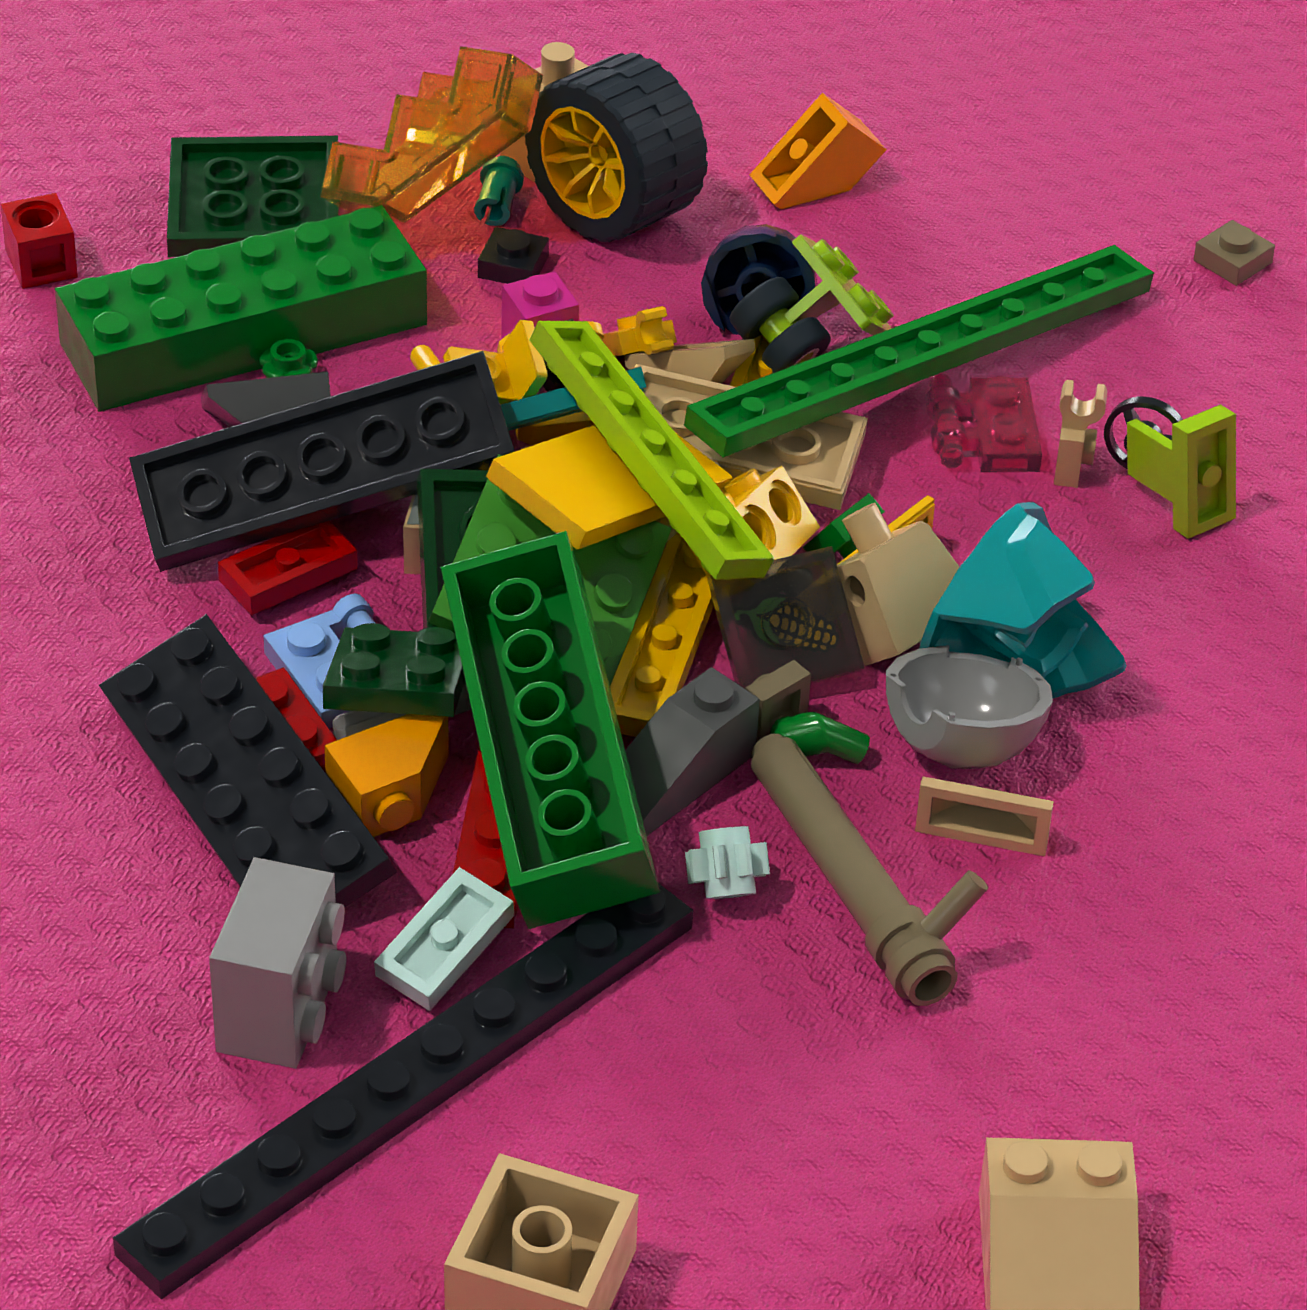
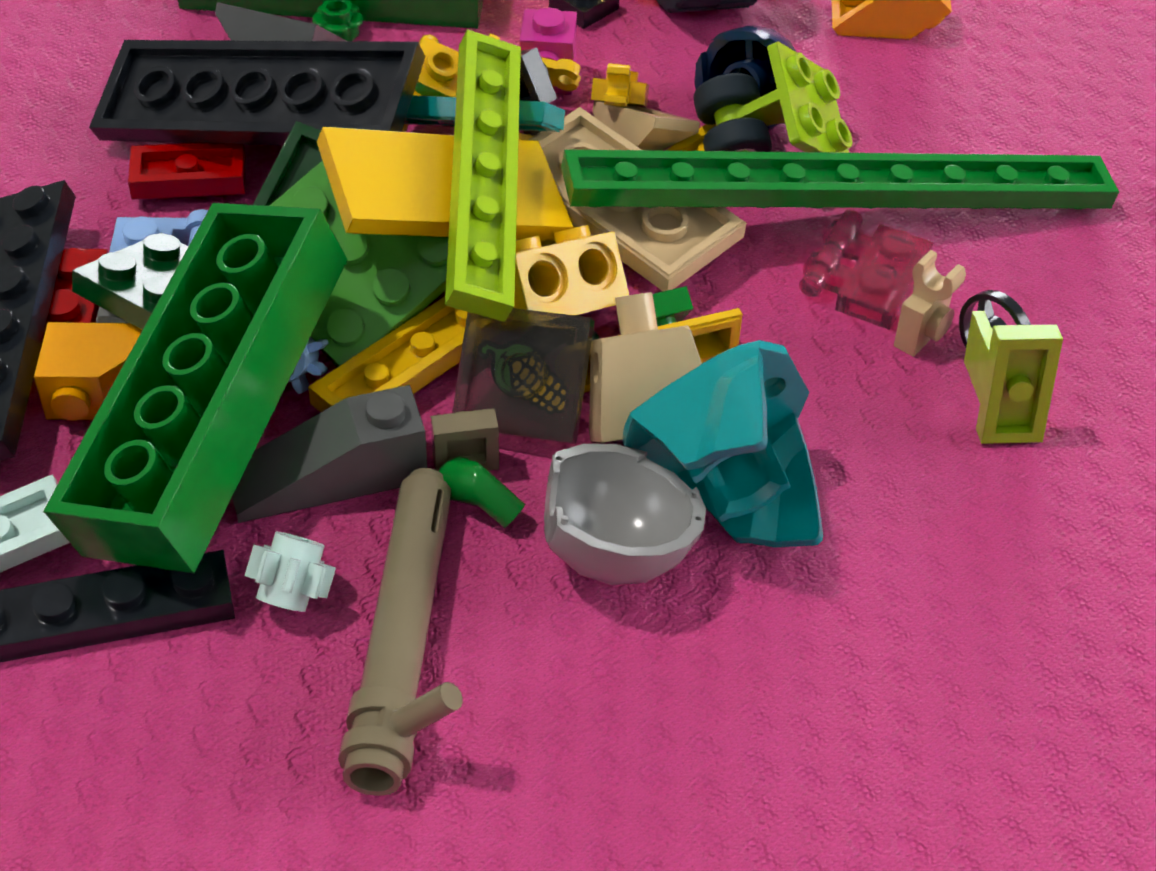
camera: 30 degrees right, 5 degrees up
(984, 816) = (566, 623): tan slope -> none

